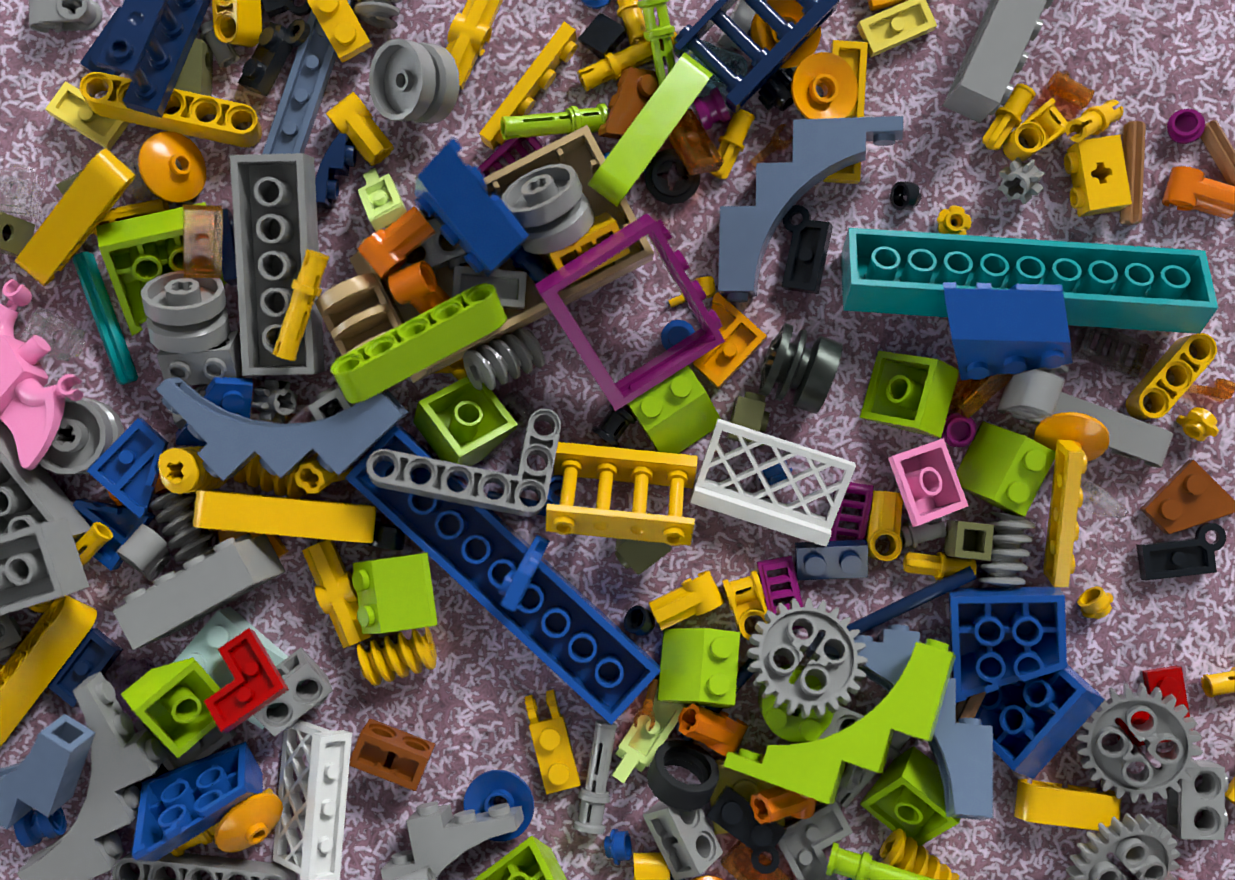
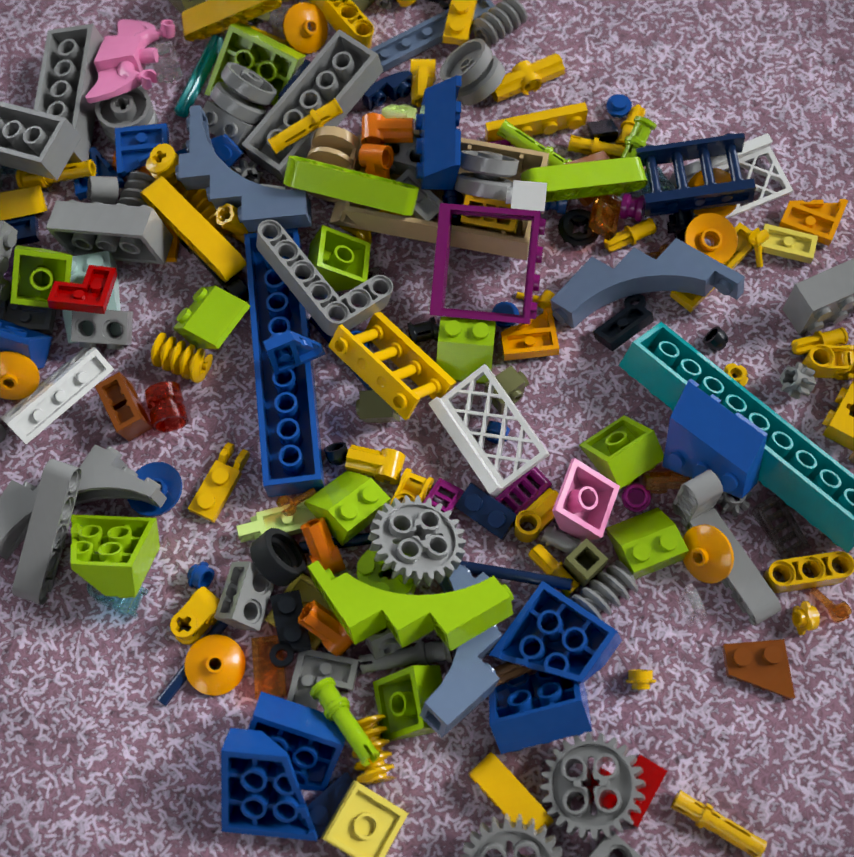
camera: 45 degrees right, 20 degrees down
(202, 241) = (284, 63): clear orange plate -> none
(271, 54) = (415, 11): black hinge -> none
(335, 591) = (180, 296): yellow piece -> none
(432, 717) = (166, 406): none -> clear red wheel
(502, 357) = (391, 243): light grey piece -> none
(594, 793) = (215, 532): light grey pin -> none
(625, 211) = (527, 195): none -> white brick
(800, 368) = (562, 377): pearl dark grey wheel -> none
(868, 49) = (756, 239): none -> yellow hand
(1064, 504) = (671, 582): yellow plate -> none
(1181, 556) = (726, 695): black hinge -> none

